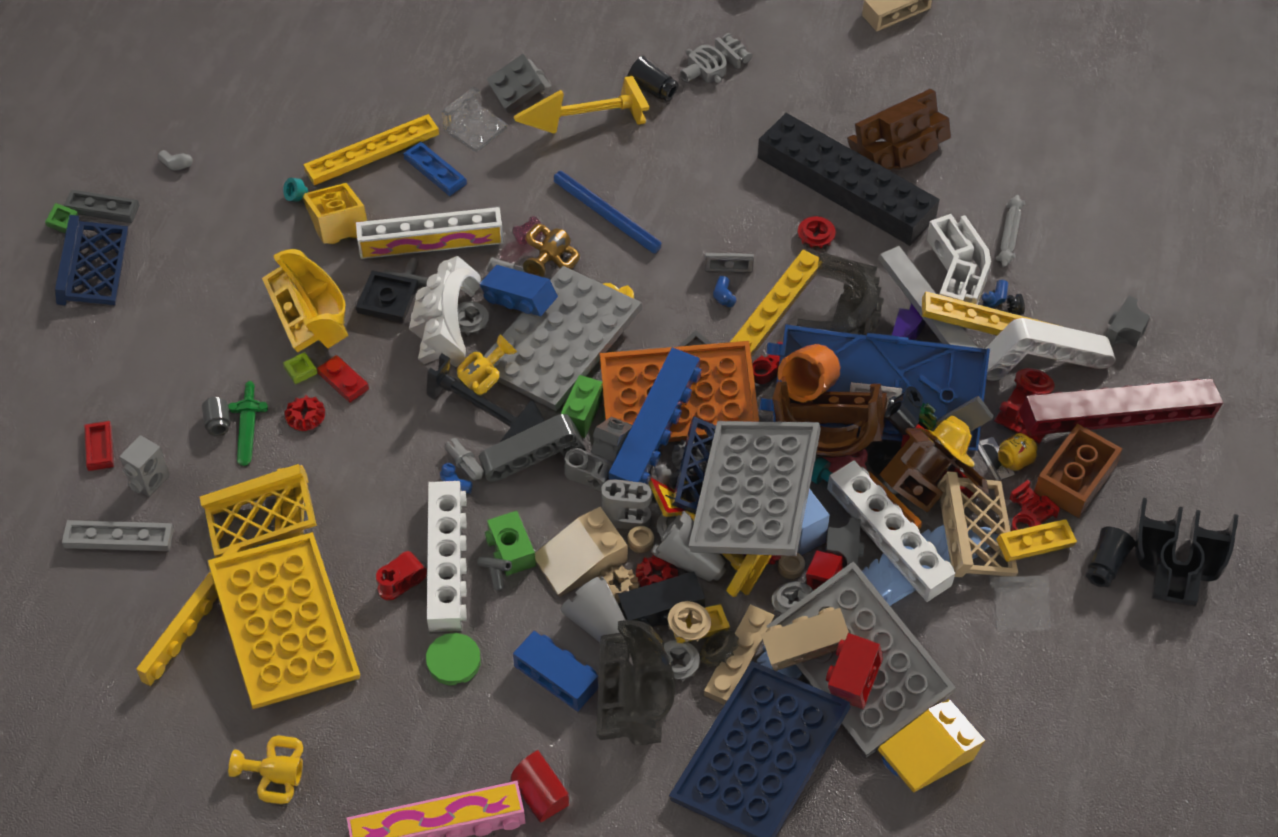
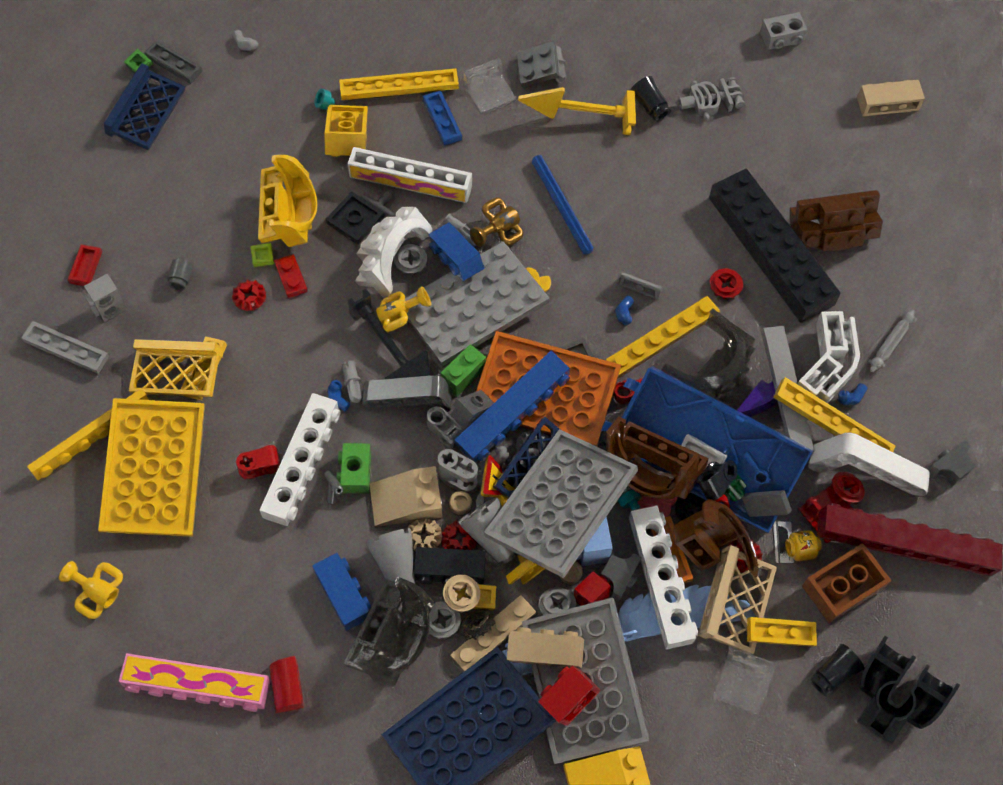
camera: 20 degrees right, 10 degrees up
(247, 410) = (207, 275): green sword -> none
(453, 659) = (269, 548): bright green tile -> none
(521, 231) = (483, 198): clear pink bush -> none
(809, 372) = (651, 416): orange cylinder -> none
(955, 438) = (748, 520): yellow piece -> none
(1016, 304) = (864, 411): black bush -> none
(1033, 509) = (794, 601): red piece -> none

